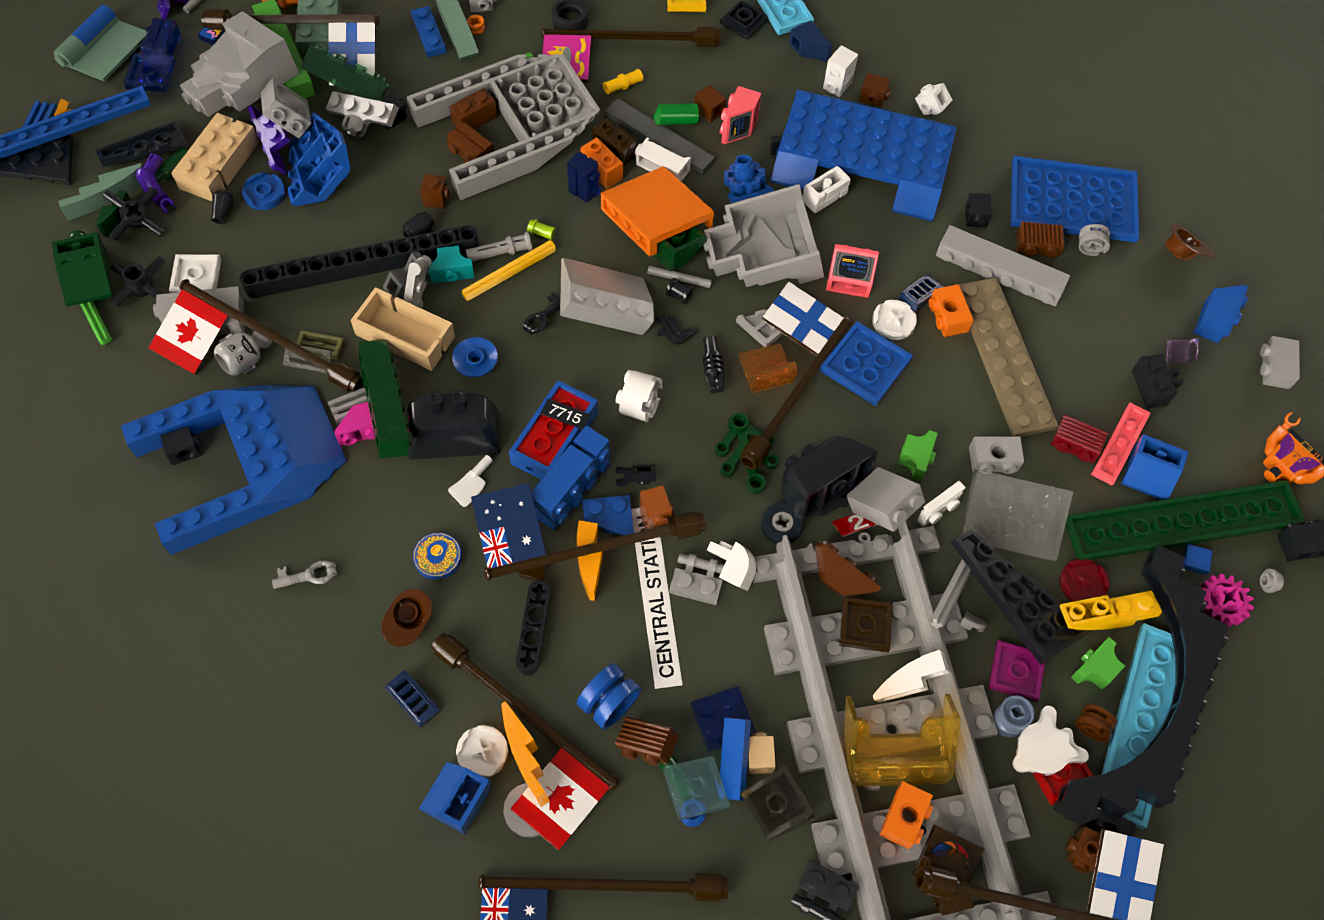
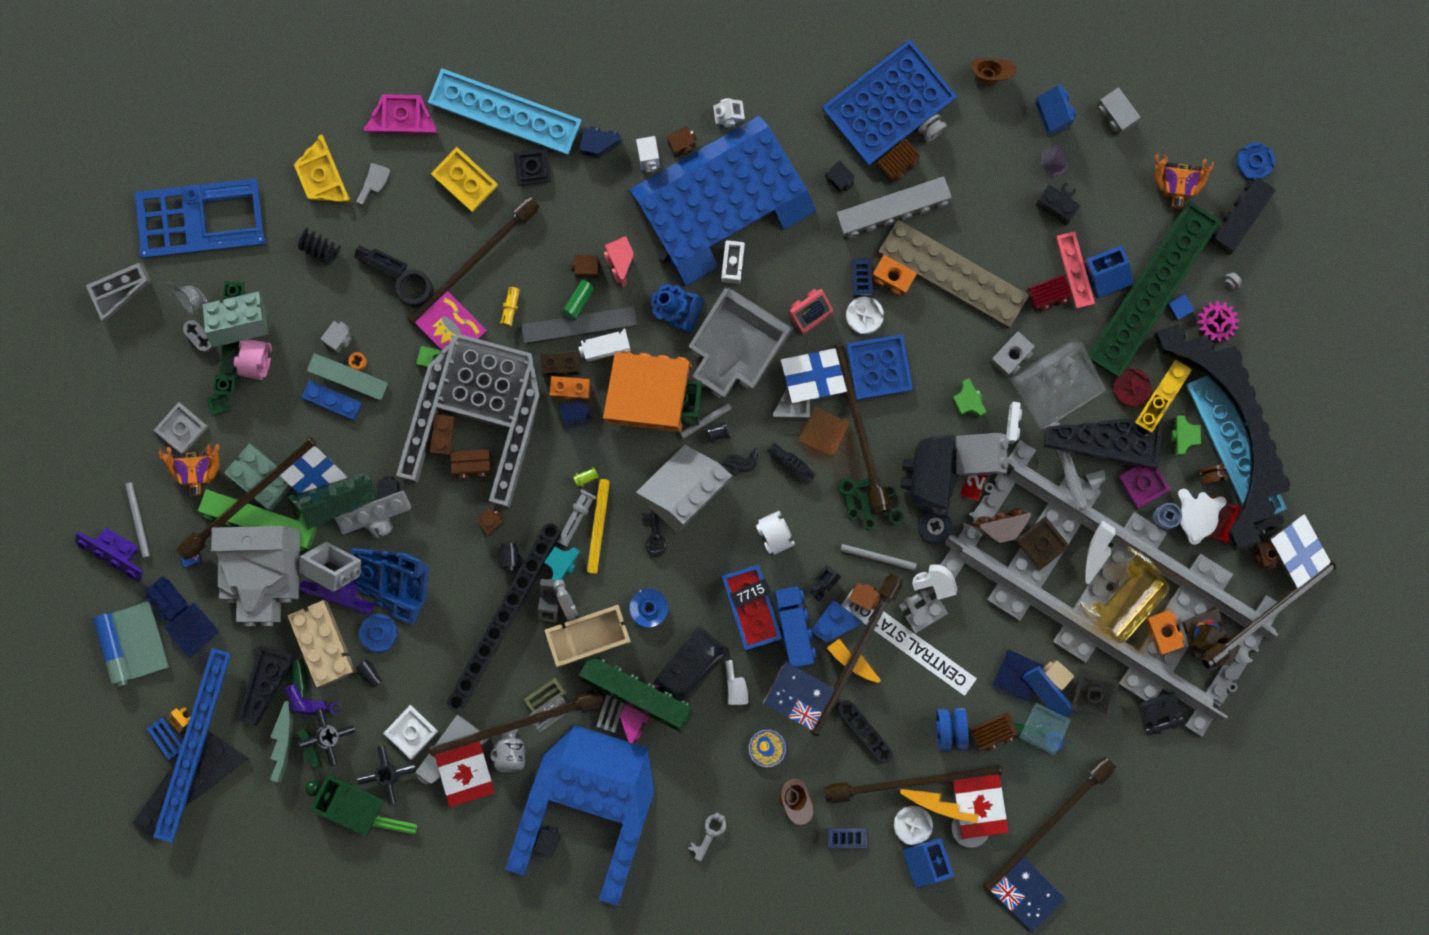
camera: 40 degrees left, 20 degrees up
(705, 501) = (878, 557): none -> light grey bar

